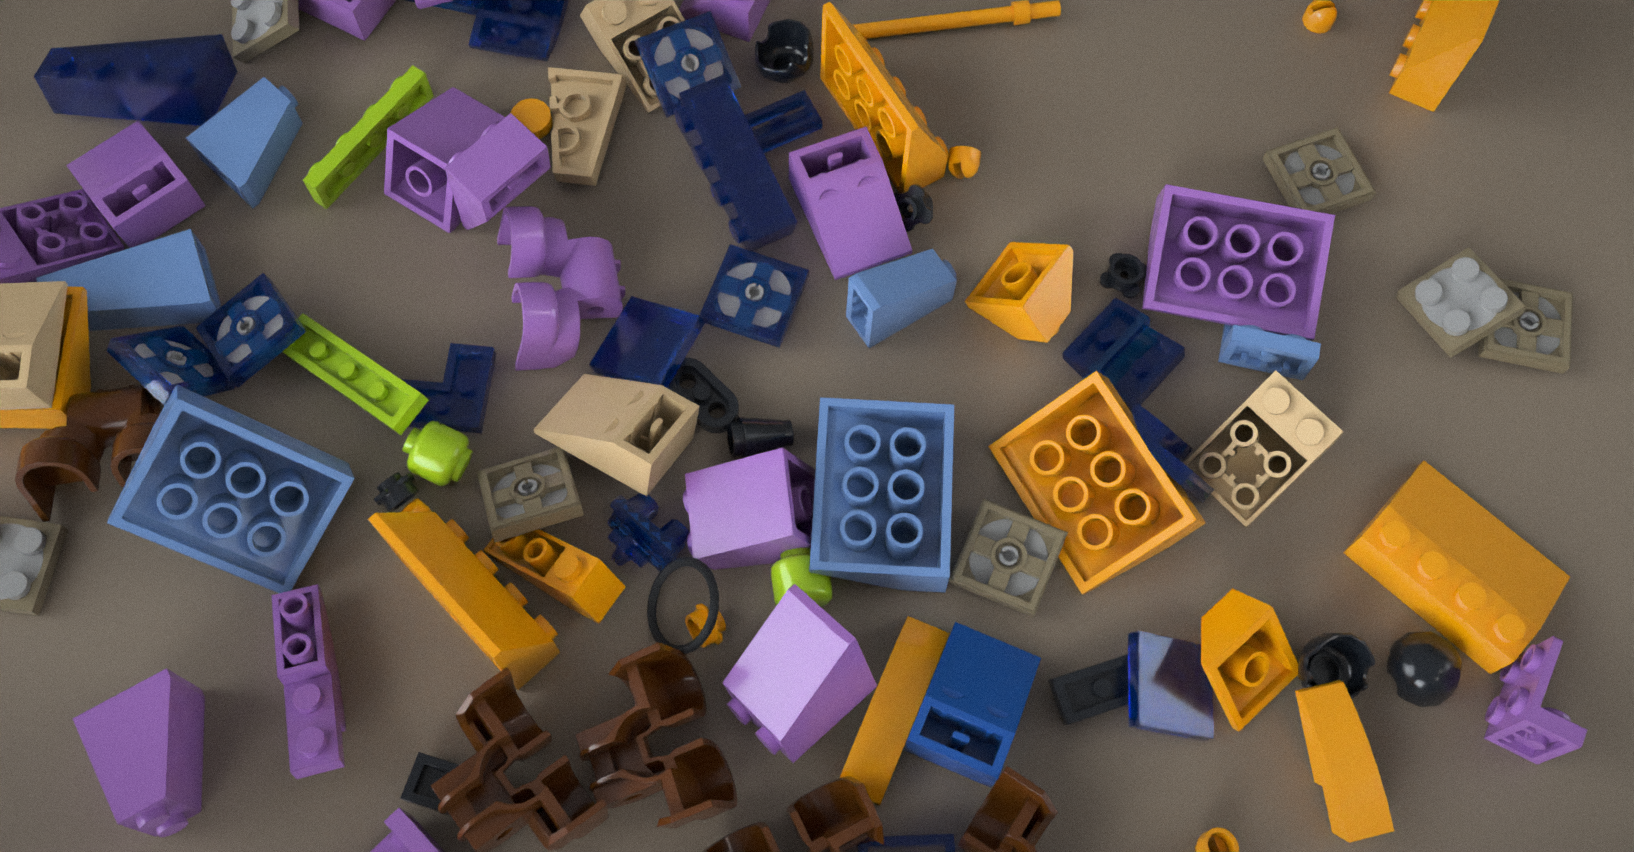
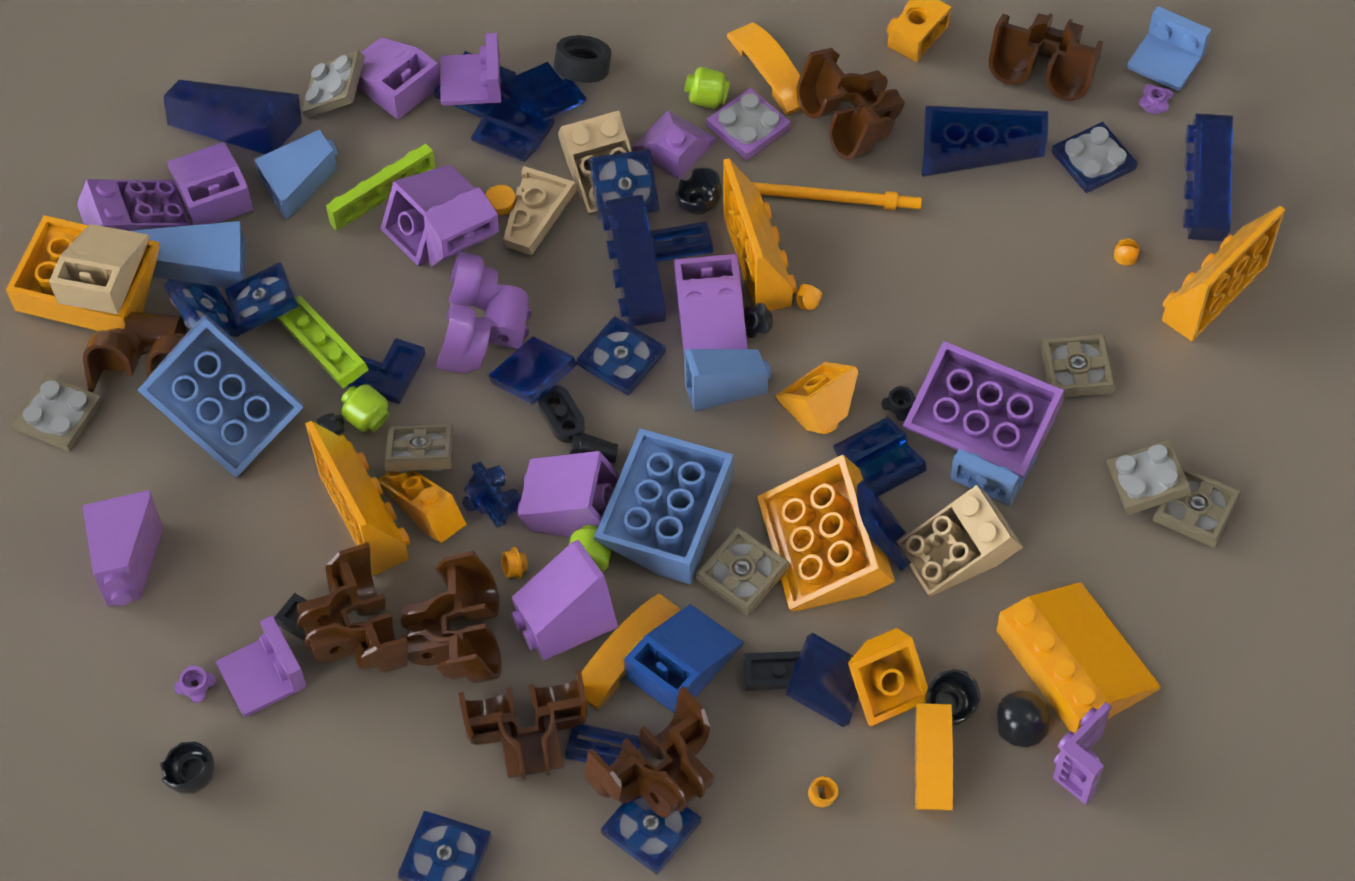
camera: 20 degrees right, 10 degrees down
(310, 681) = (236, 530): medium lavender slope -> none
(622, 428) = (498, 420): tan slope -> none
(713, 610) = (519, 546): black tyre -> none

